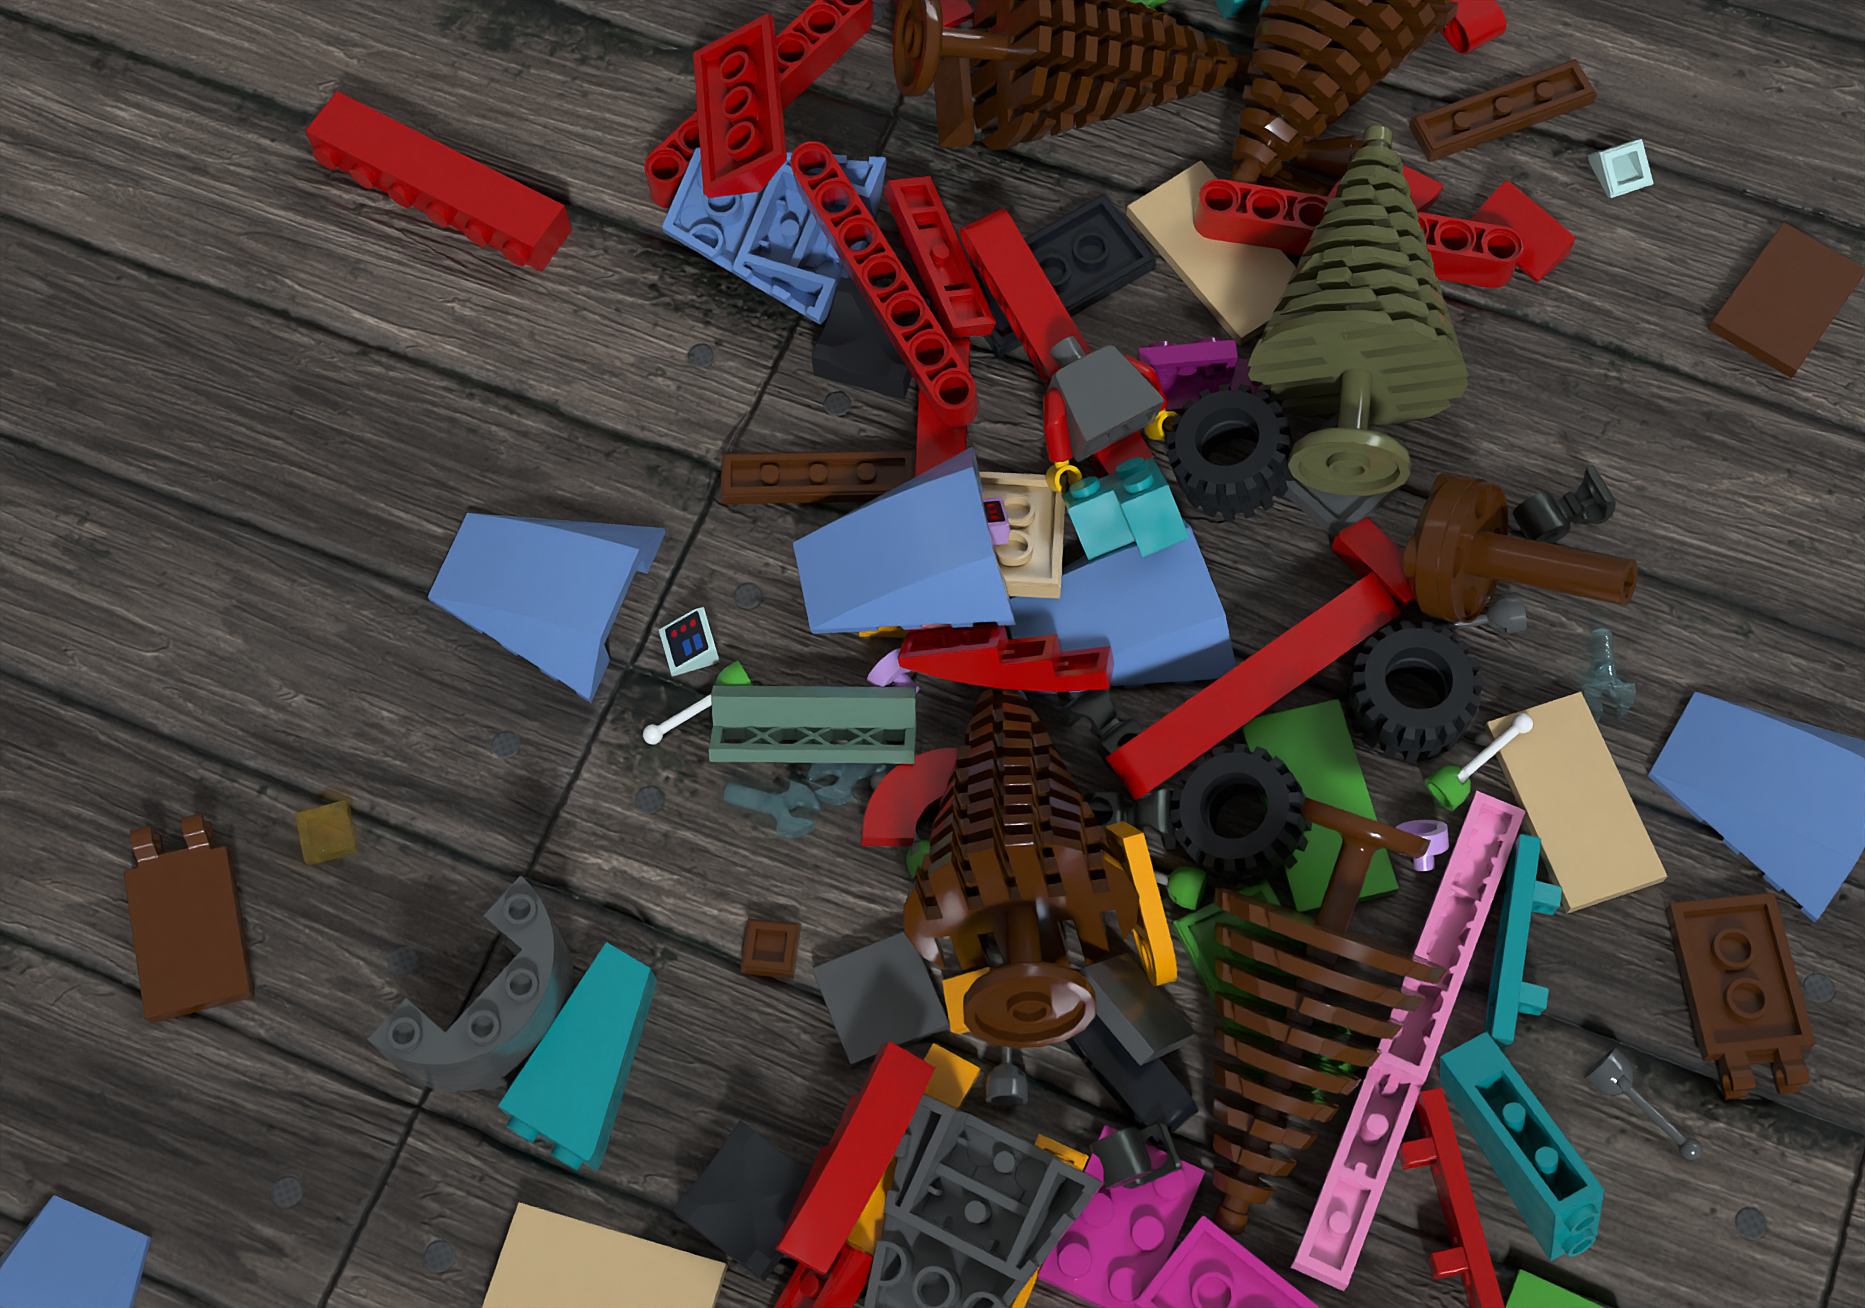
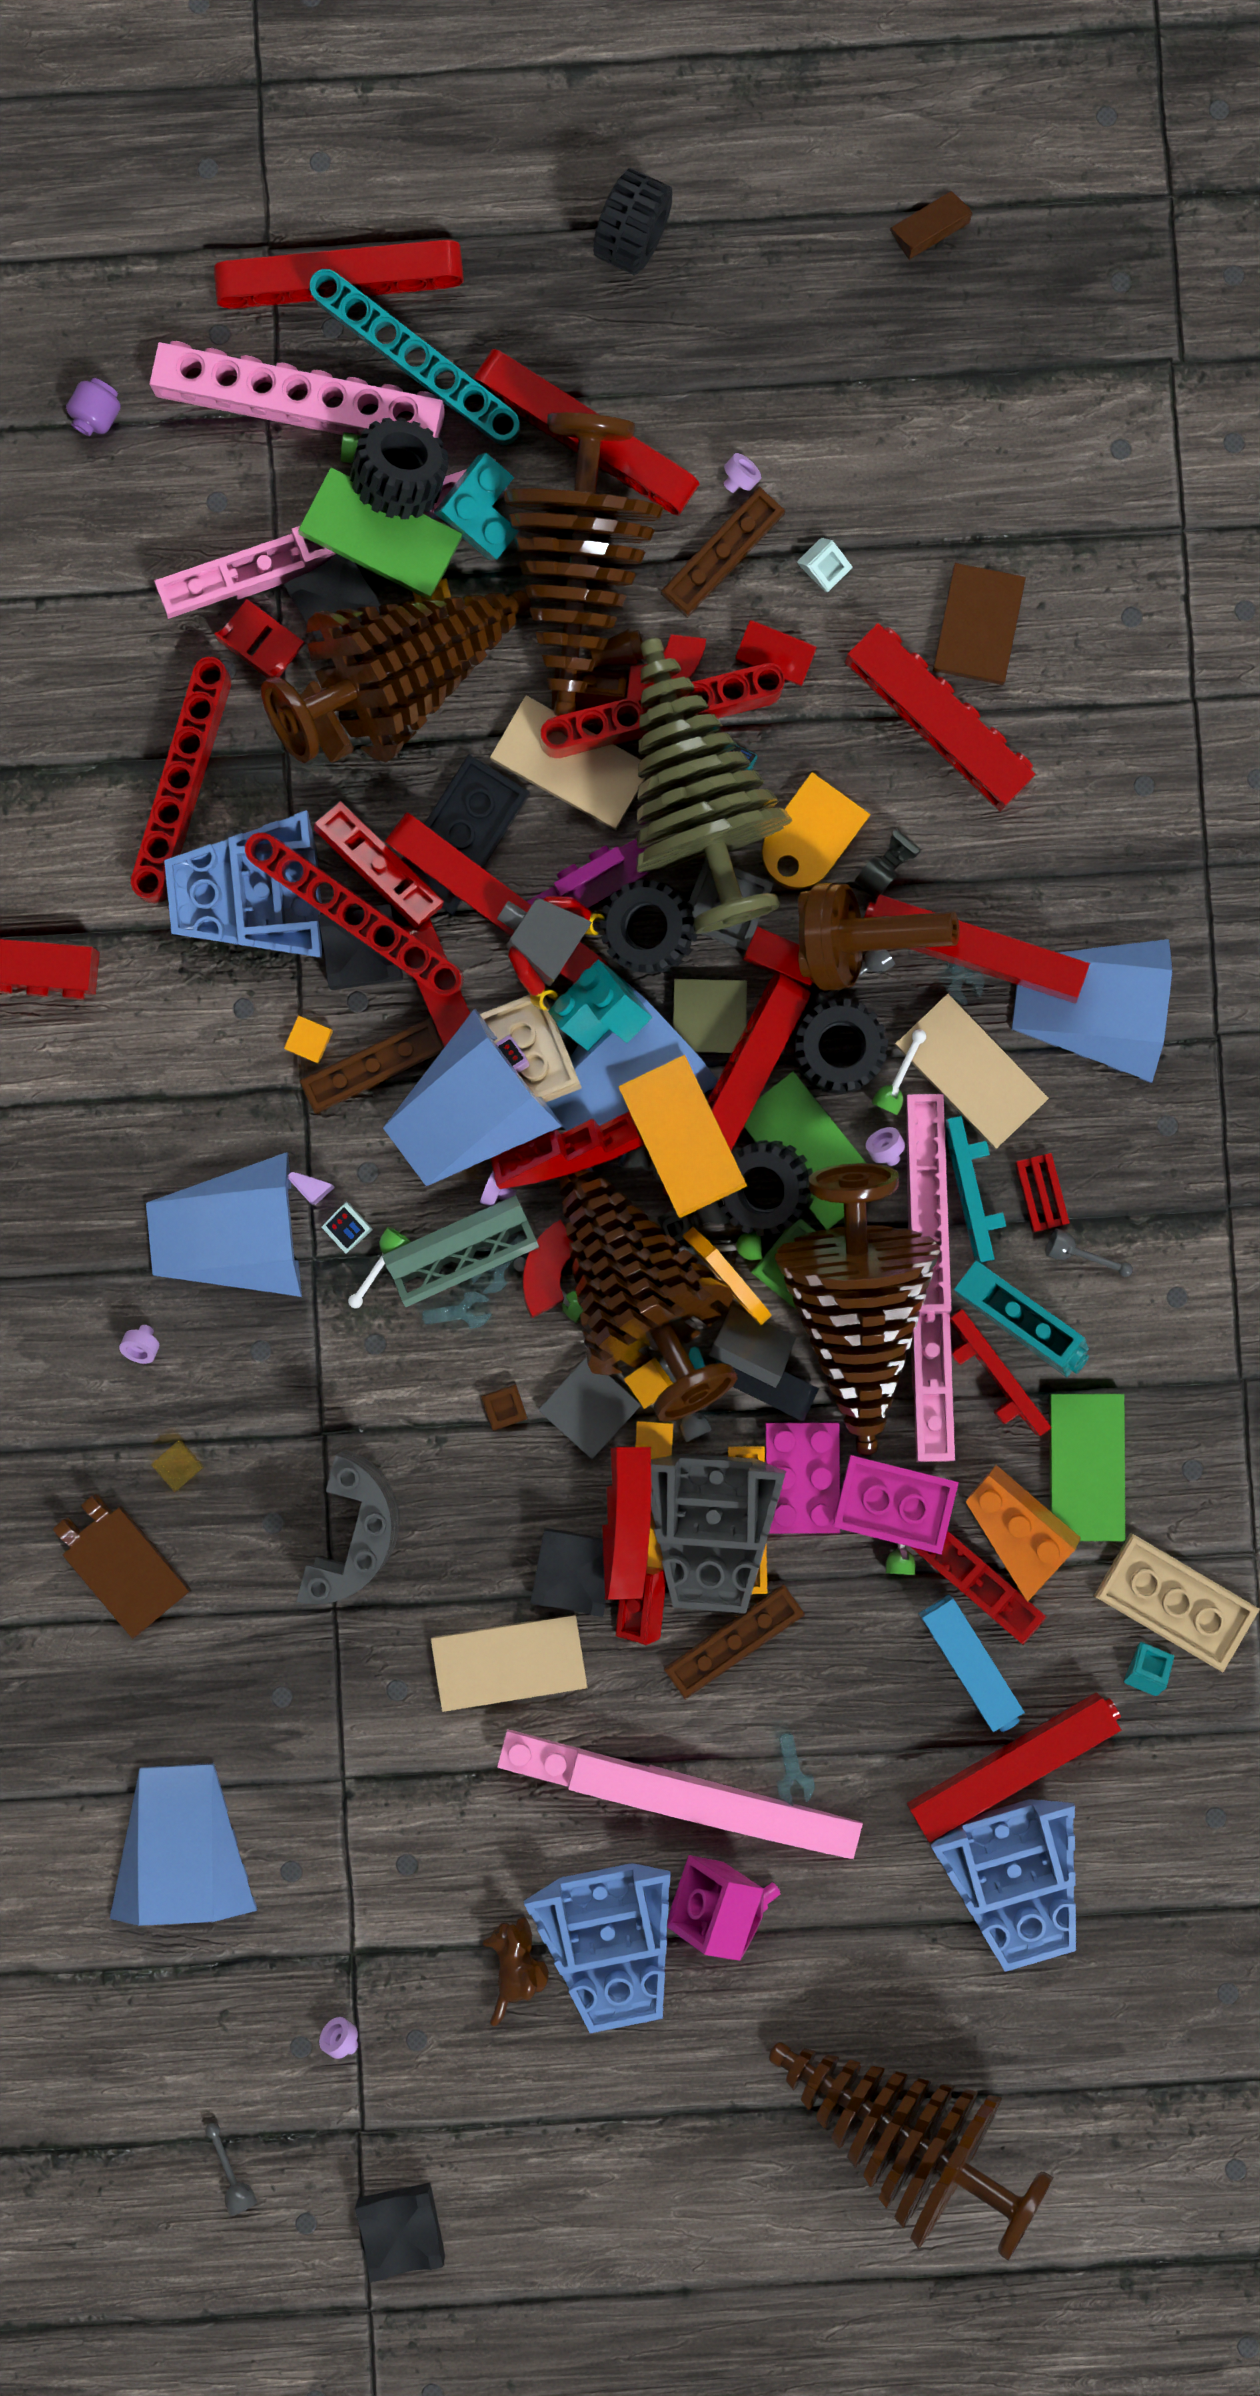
camera: 25 degrees left, 20 degrees up
(364, 665) = (139, 1345): none -> lavender tile
(583, 1062) = (426, 1538): teal slope -> none
(673, 577) = (311, 1188): none -> lavender slope
(740, 110) = (182, 819): red slope -> none
(757, 416) = (308, 1039): none -> light orange tile
(1127, 1159) = (791, 1448): pearl dark grey leg -> none
(1162, 694) = (682, 1136): none -> light orange tile
(1263, 589) = (710, 1013): none -> olive tile
(1485, 436) = (816, 837): none -> light orange tile
(1559, 37) = (741, 473): none -> lavender tile
(1615, 952) = (1055, 1188): none -> red tile
(1668, 668) = (1000, 955): none -> red brick
(1700, 377) = (939, 716): none -> red brick
(1742, 989) = (1120, 1151): reddish brown tile -> none

